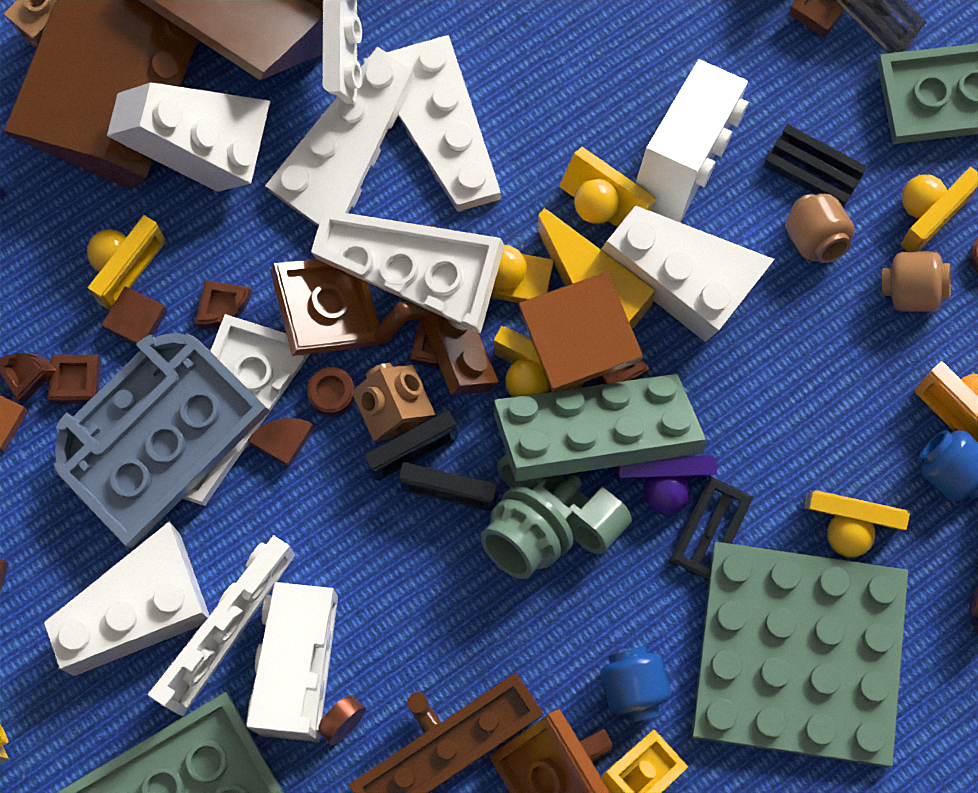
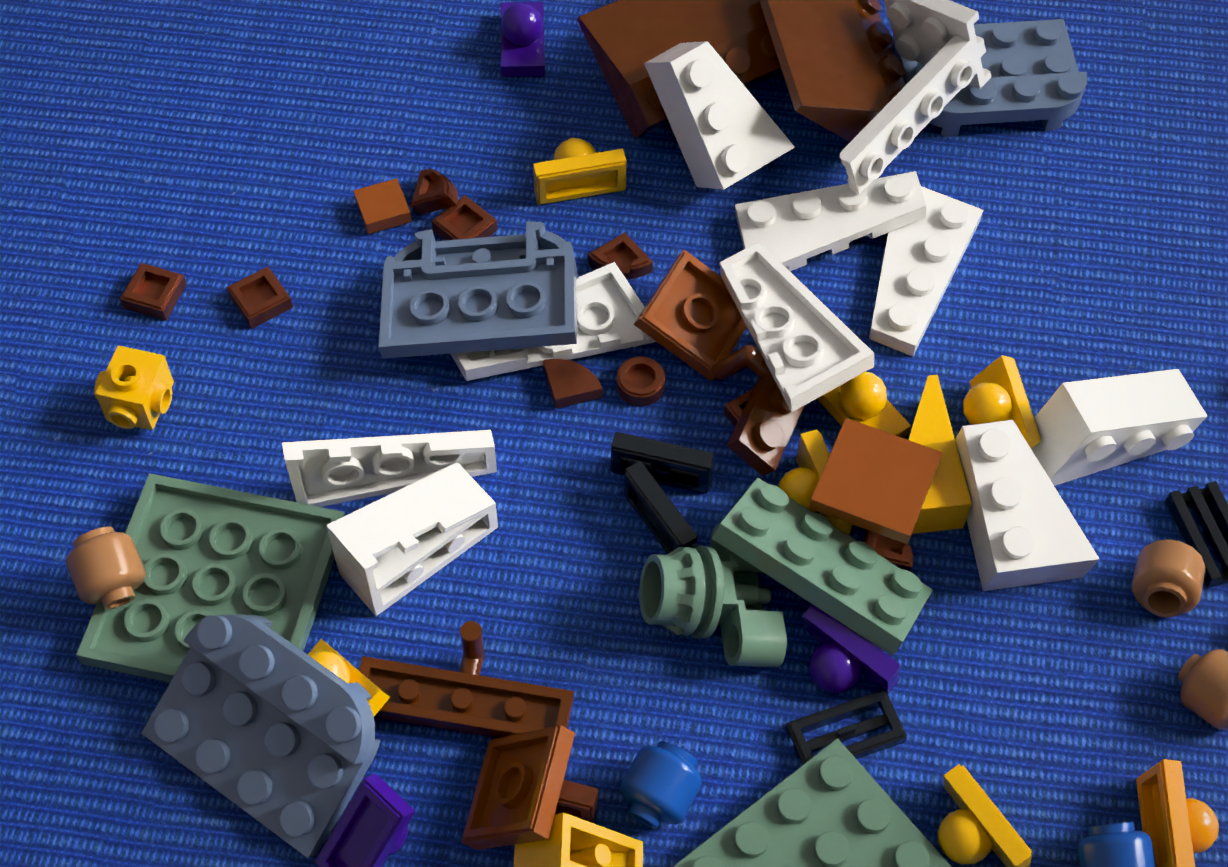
camera: 40 degrees right, 15 degrees down
(130, 606) = (338, 392): white wedge -> none
(134, 316) = (553, 212): copper tile -> none
(341, 719) = (406, 608): copper tile -> none
(392, 401) = (678, 414): medium nougat brick -> none

